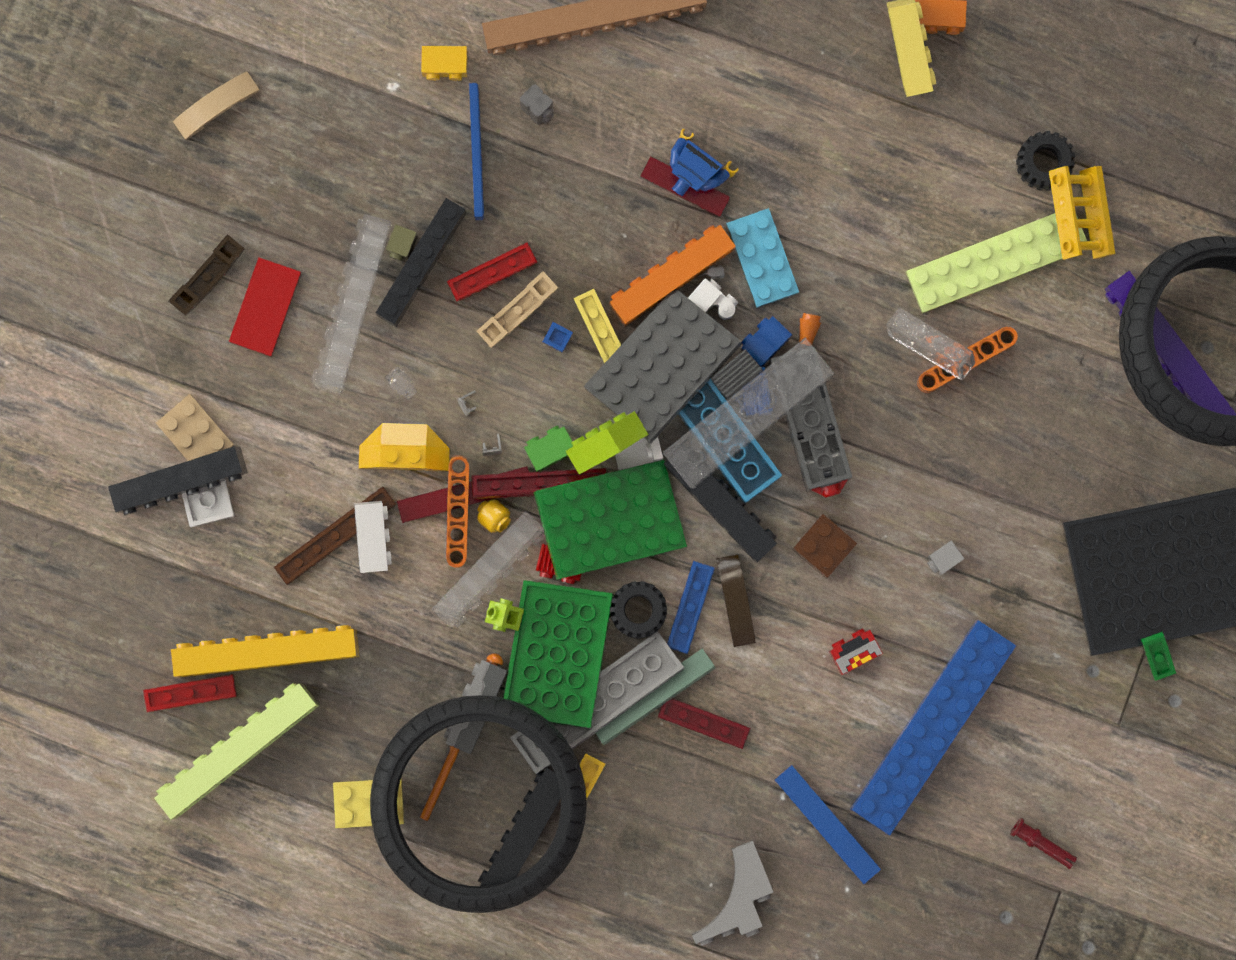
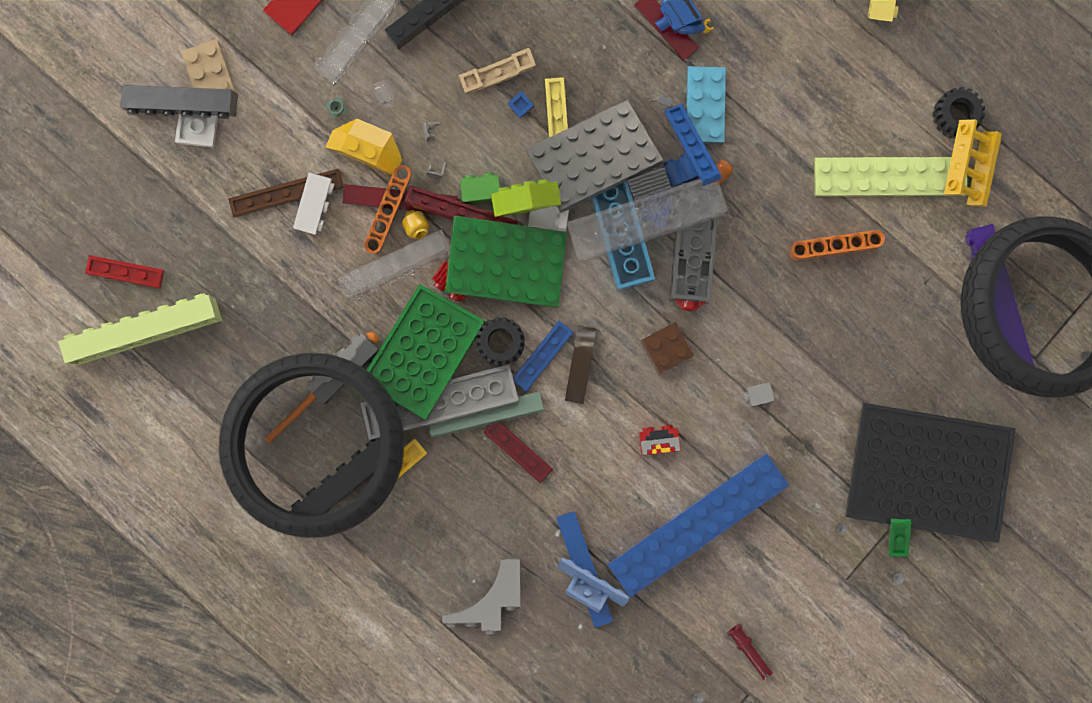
camera: 20 degrees right, 0 degrees up
(264, 653) = (194, 262): yellow brick -> none
(353, 804) = (214, 407): light yellow plate -> none
(360, 419) = (338, 102): none -> sand green plate
(492, 272) = (489, 35): red tile -> none
(504, 615) = (392, 305): lime brick -> none
(672, 275) = (633, 89): orange brick -> none
(709, 295) = (651, 117): white brick -> none
(730, 514) = (602, 295): black brick -> none
(766, 312) = (693, 145): none -> blue tile
(840, 843) = (589, 589): none -> medium blue bracket
(930, 343) = (813, 220): clear brick -> none

